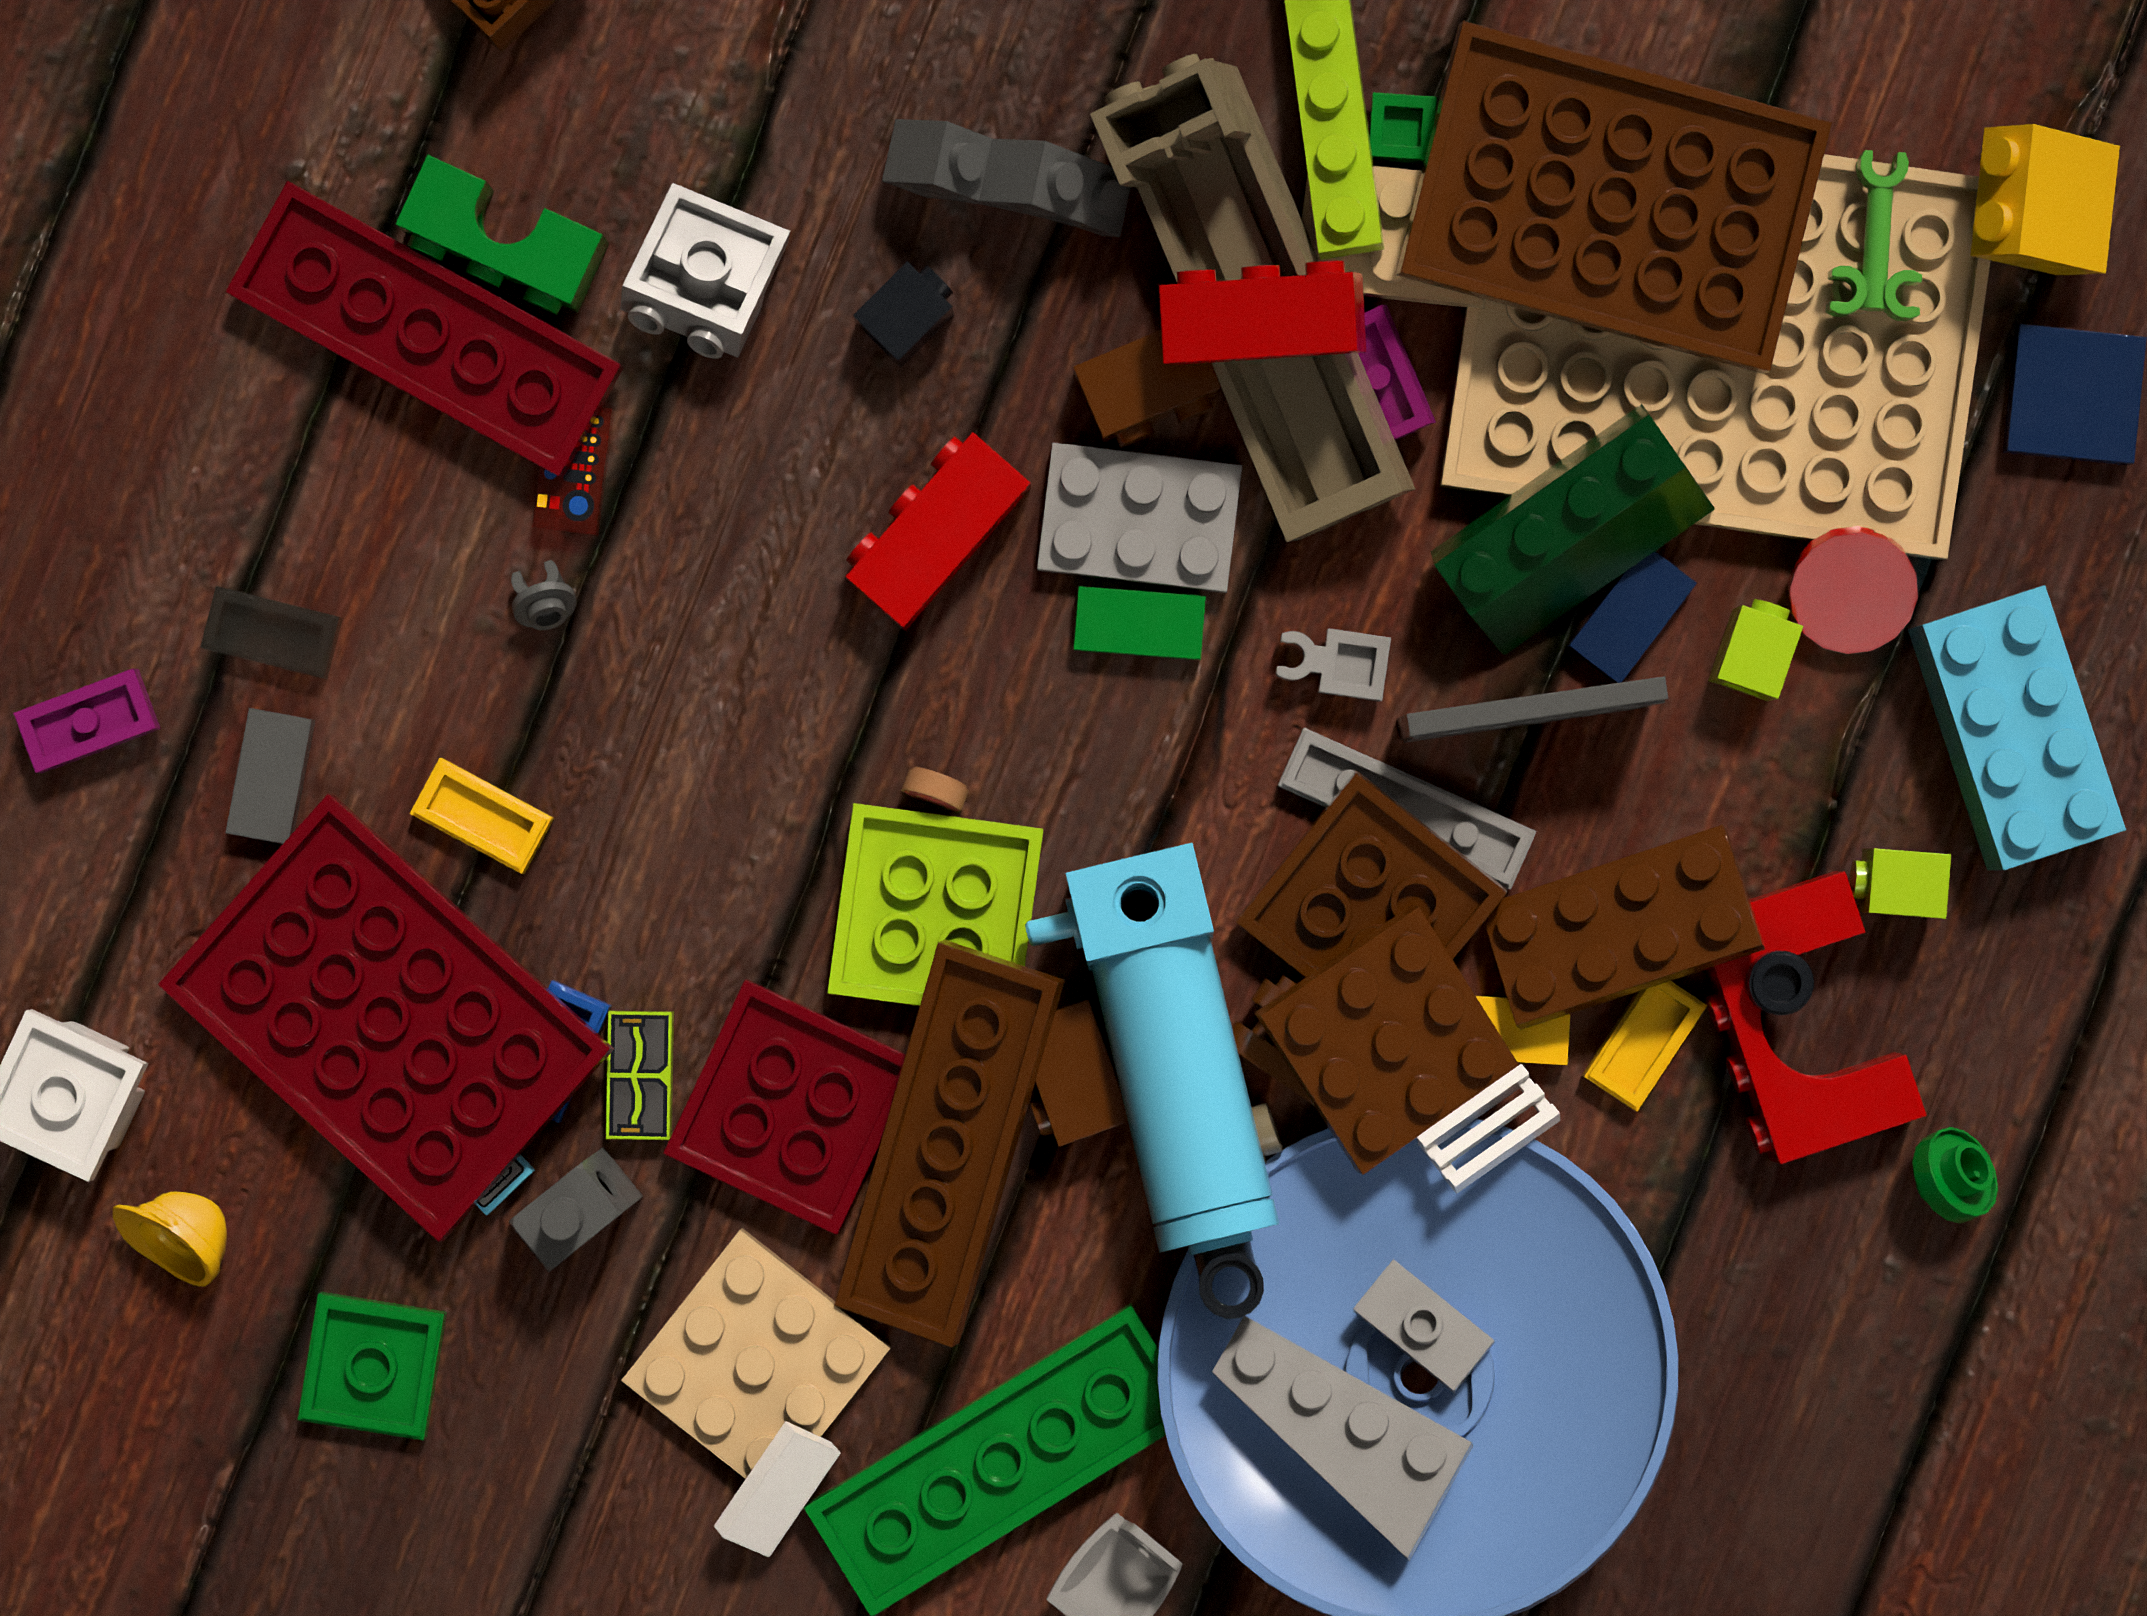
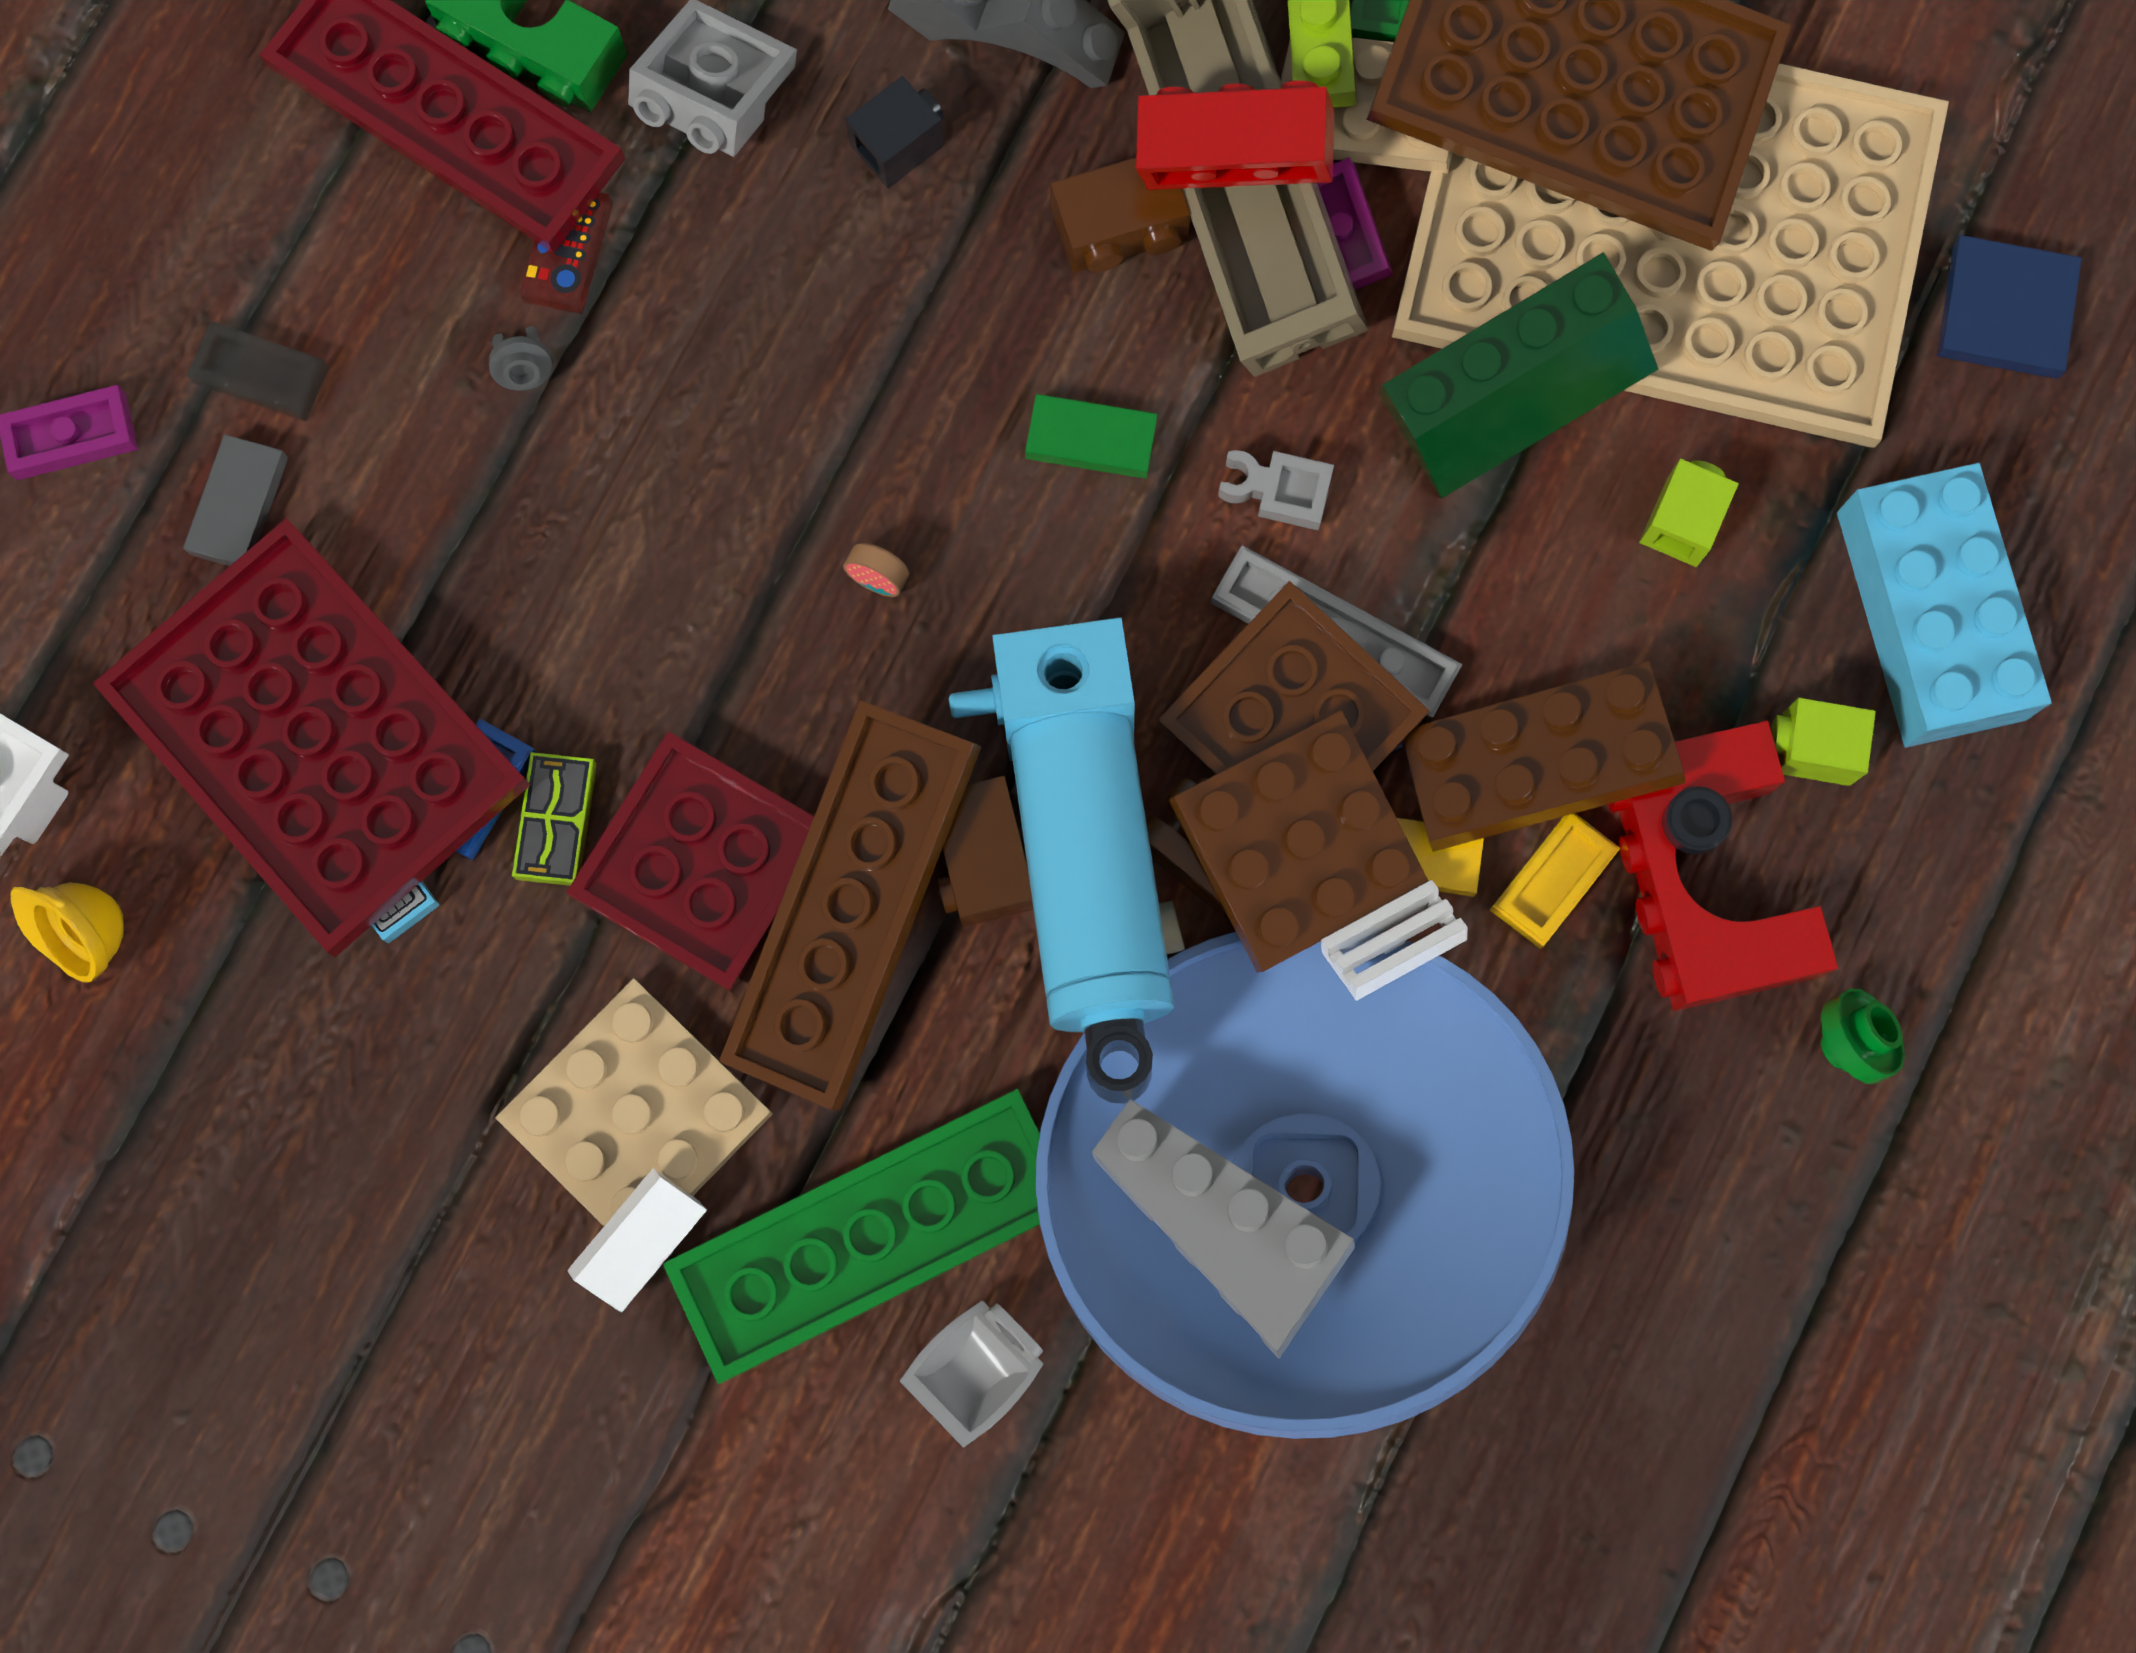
camera: 10 degrees right, 10 degrees down
(372, 1365) = (249, 1082): green tile -> none
(482, 815) = (435, 558): yellow tile -> none
(575, 1209) = (467, 939): dark grey torso -> none
(926, 882) = (853, 647): lime plate -> none
(936, 529) = (905, 328): red brick -> none
(1139, 518) = (1100, 340): light grey plate -> none
(1423, 1326) = (1312, 1132): light grey plate -> none
(1532, 709) = (1466, 537): dark grey tile -> none
(1631, 616) = (1569, 471): dark blue tile -> none
(1852, 590) = (1788, 461): red tile -> none
(1871, 288) = (1819, 181): bright green bar -> none
(2045, 200) = (1991, 114): yellow brick -> none

